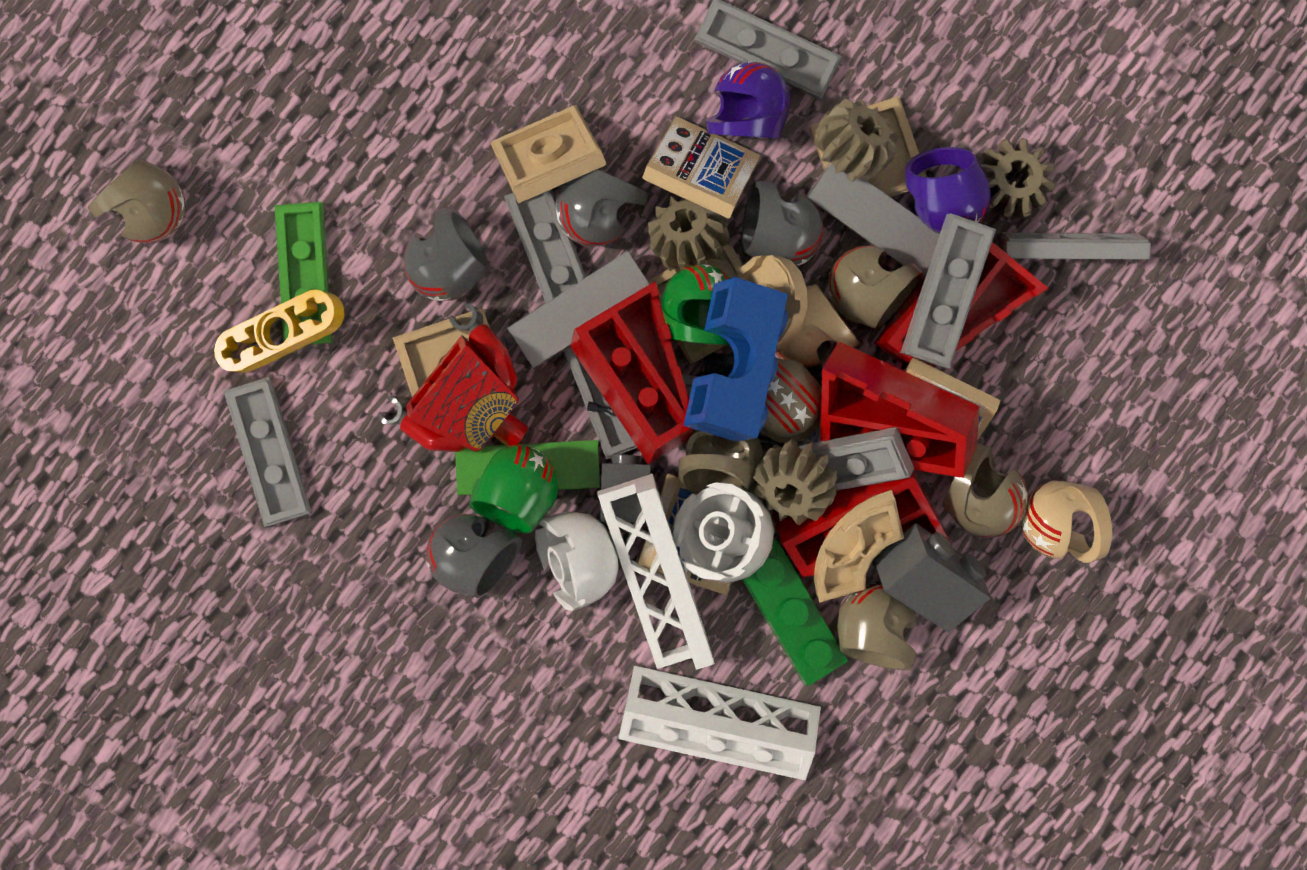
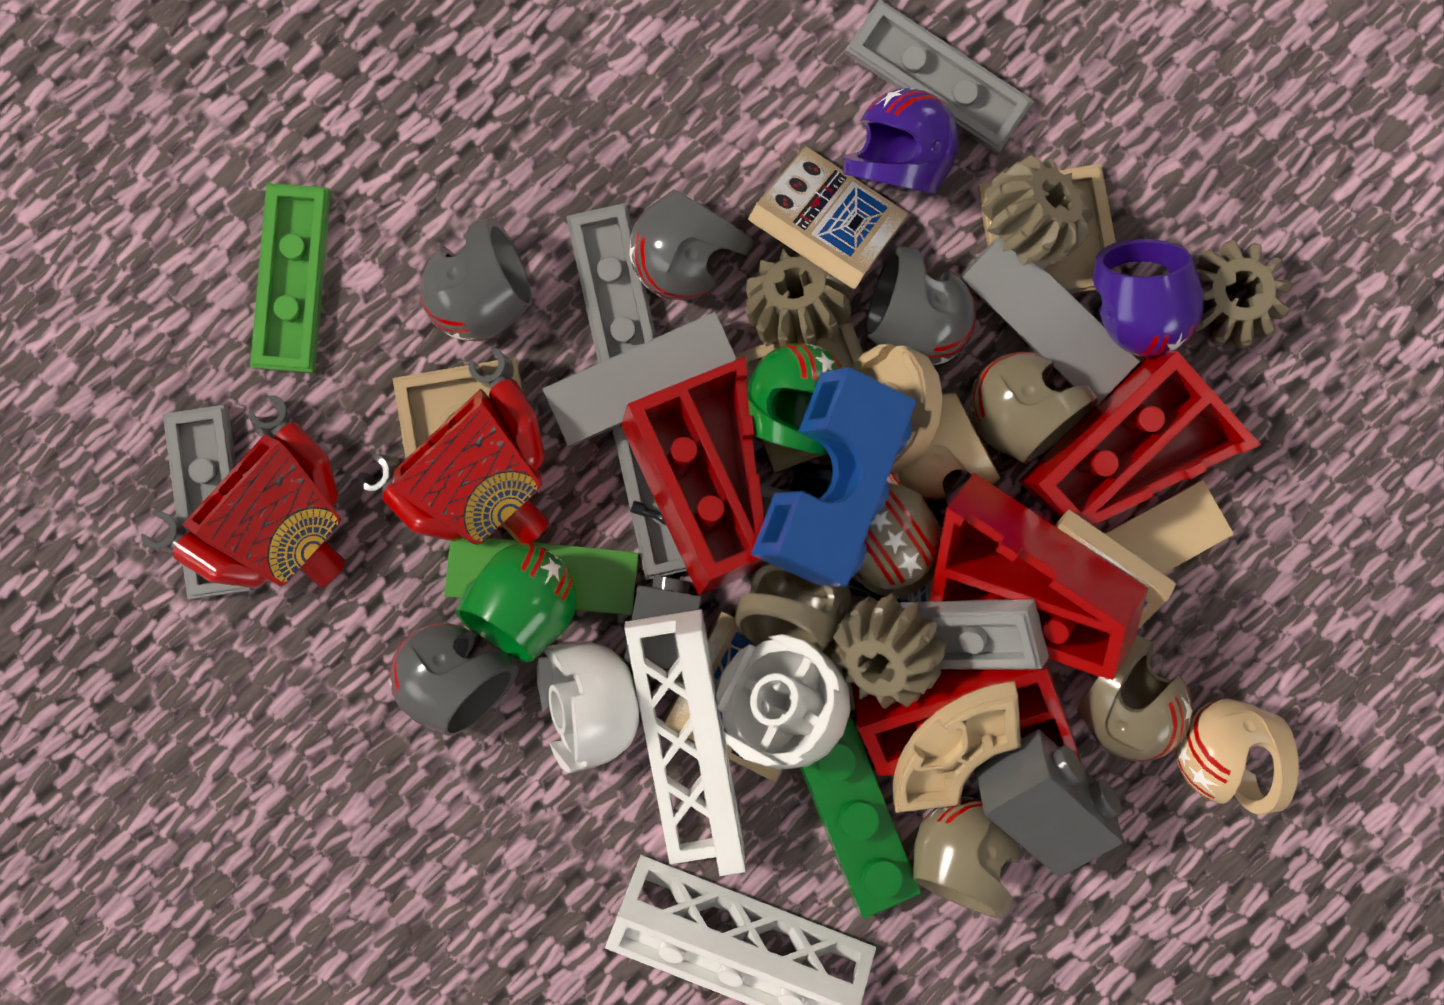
camera: 15 degrees right, 0 degrees up
(146, 199) = (99, 150): dark tan helmet -> none
(258, 330) = (271, 353): yellow beam -> none
(314, 454) = (264, 514): none -> red torso
(548, 153) = (630, 169): tan tile -> none
(948, 291) = (1129, 428): light grey tile -> none
(995, 360) = (1174, 528): none -> tan tile
(1075, 245) = (1303, 394): light grey tile -> none

